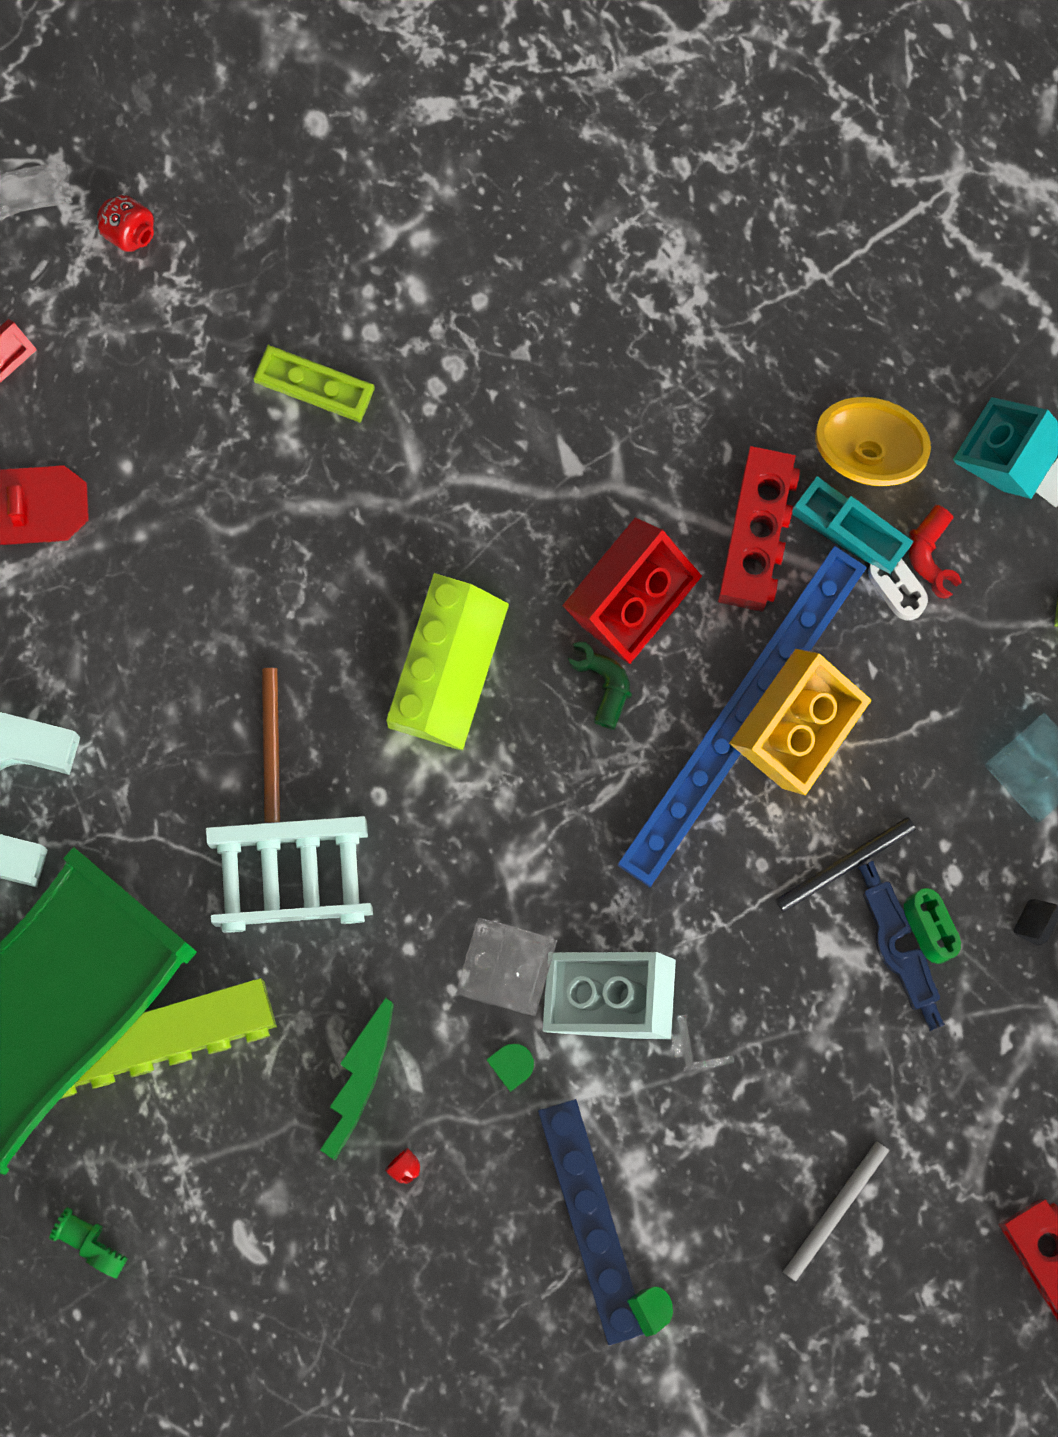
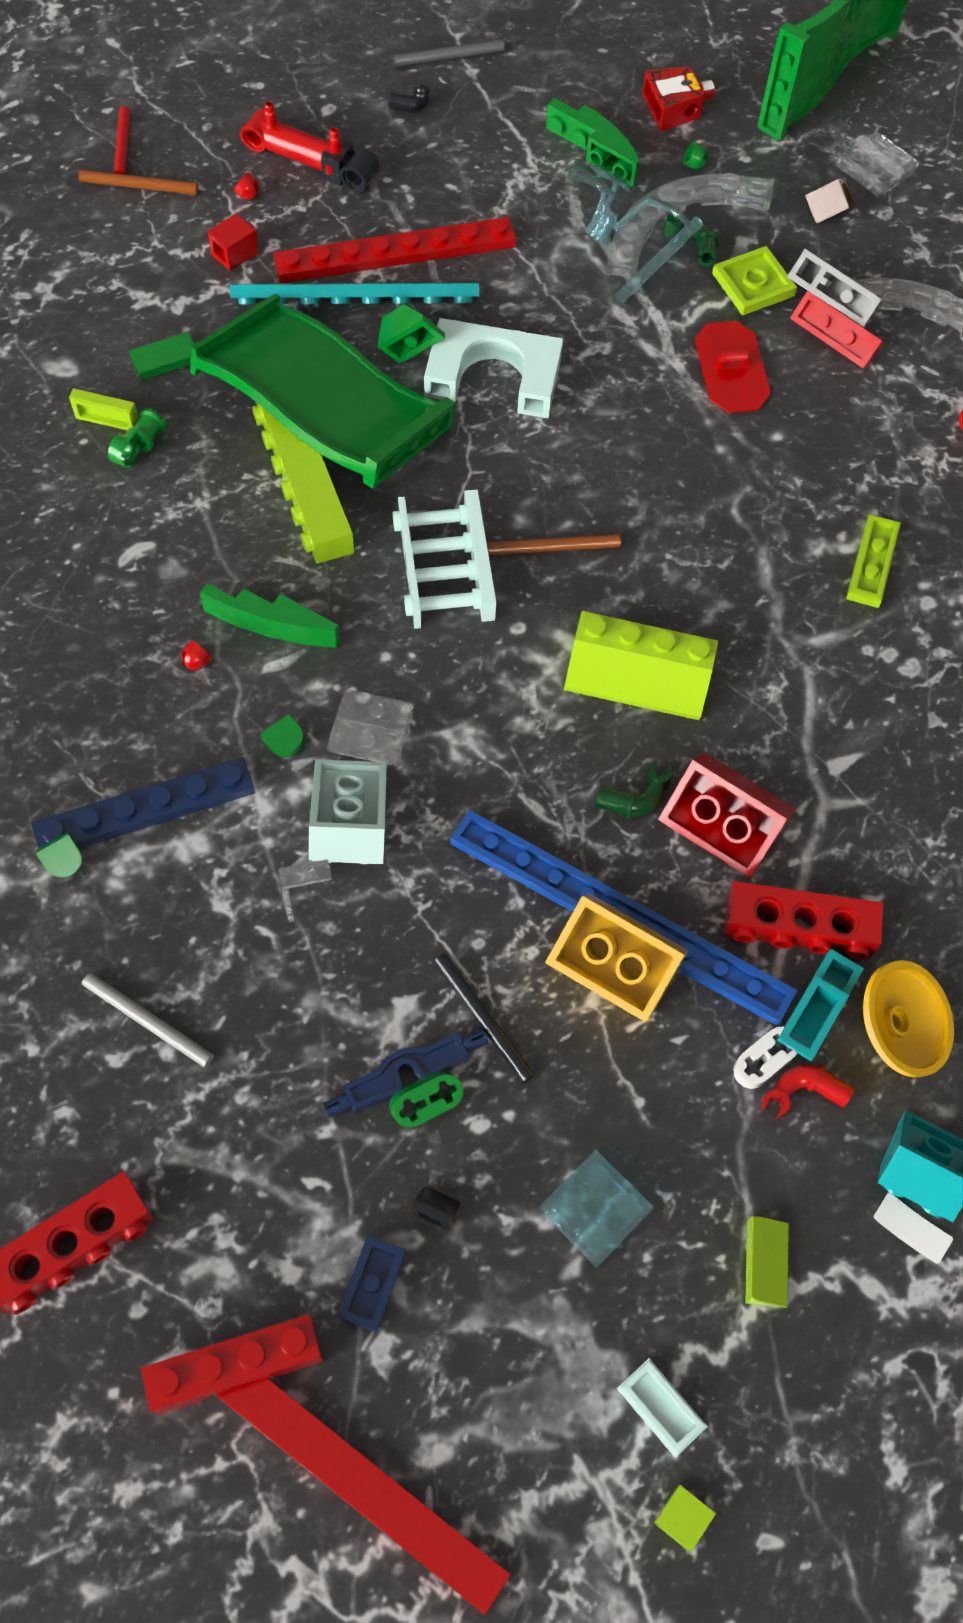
camera: 85 degrees right, 15 degrees down
(43, 1286) = (103, 409): none -> lime tile

